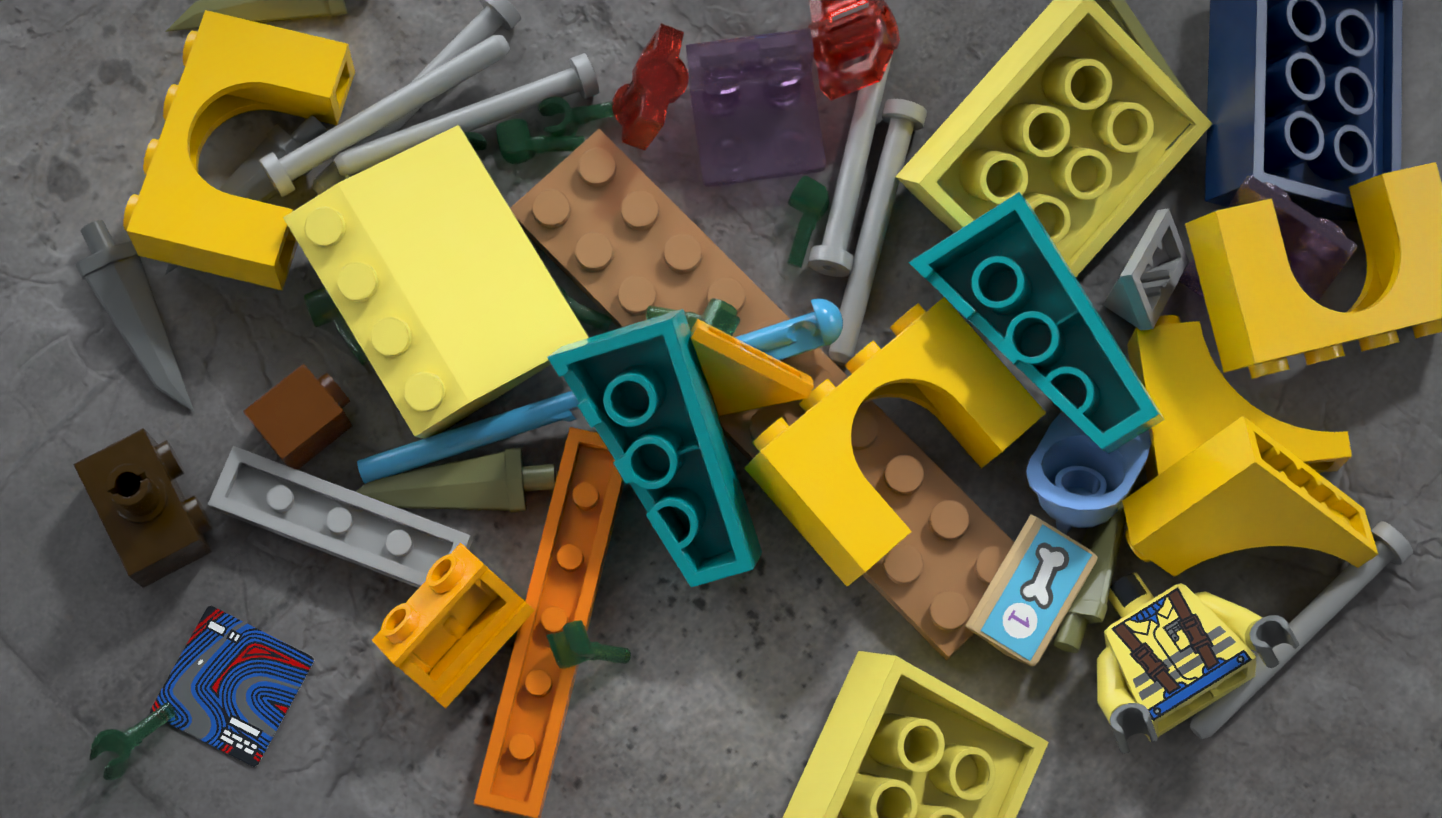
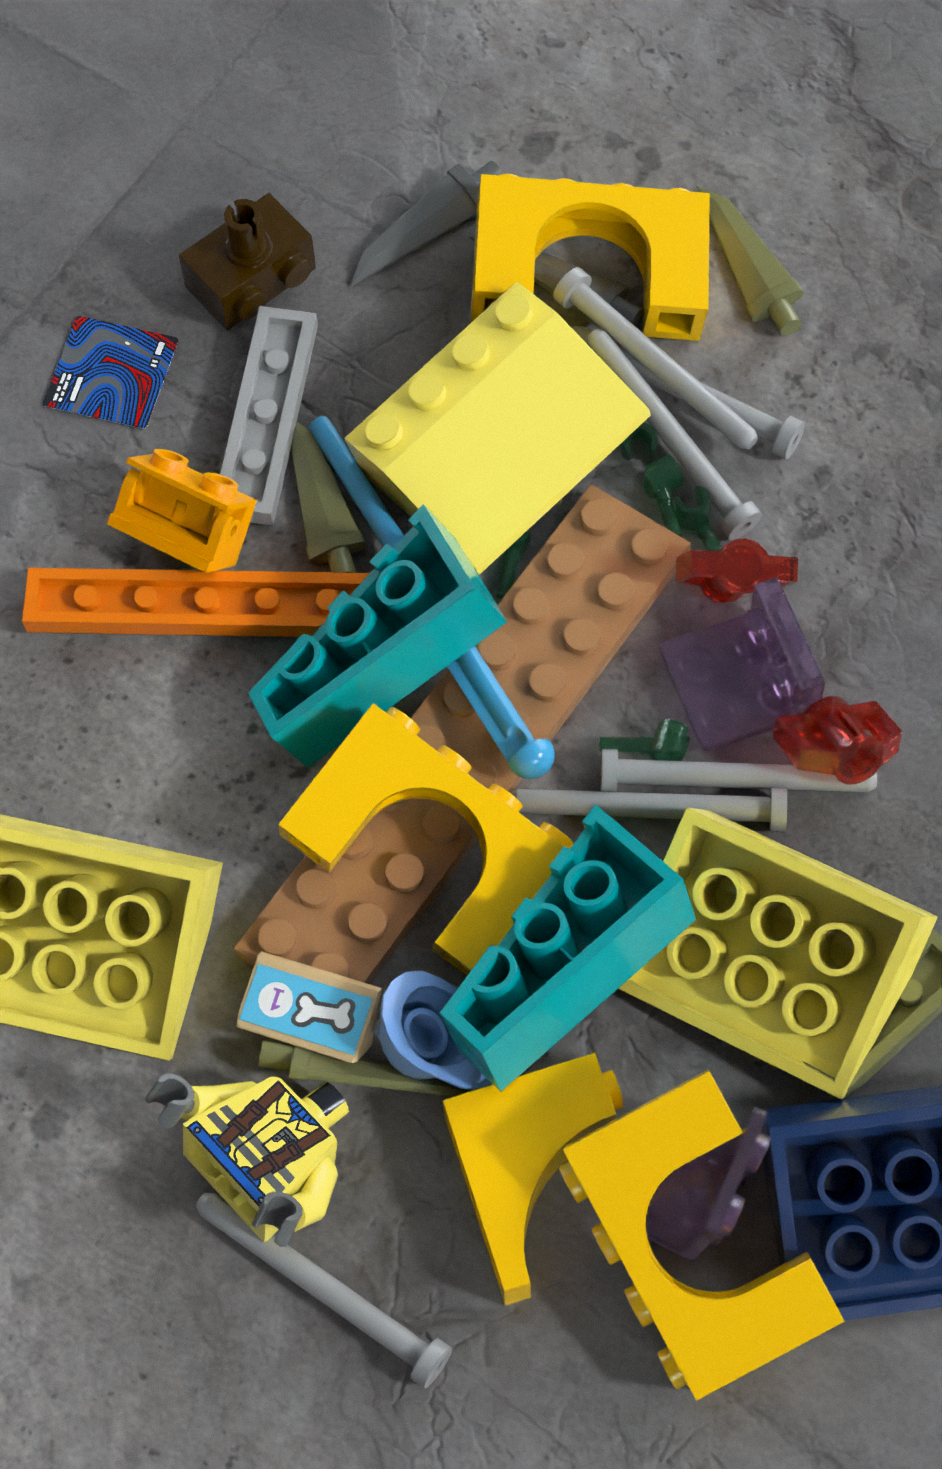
camera: 80 degrees right, 10 degrees down
(125, 741) = (45, 300): clear green hand -> none
(300, 416) = (353, 359): reddish brown brick -> none
(574, 647) = (178, 612): clear green hand -> none
(717, 314) = (513, 669): clear green hand -> none
(742, 375) = (465, 688): light orange slope -> none
(1149, 274) = (656, 1056): light grey slope -> none
(1240, 496) = (439, 1194): yellow arch -> none

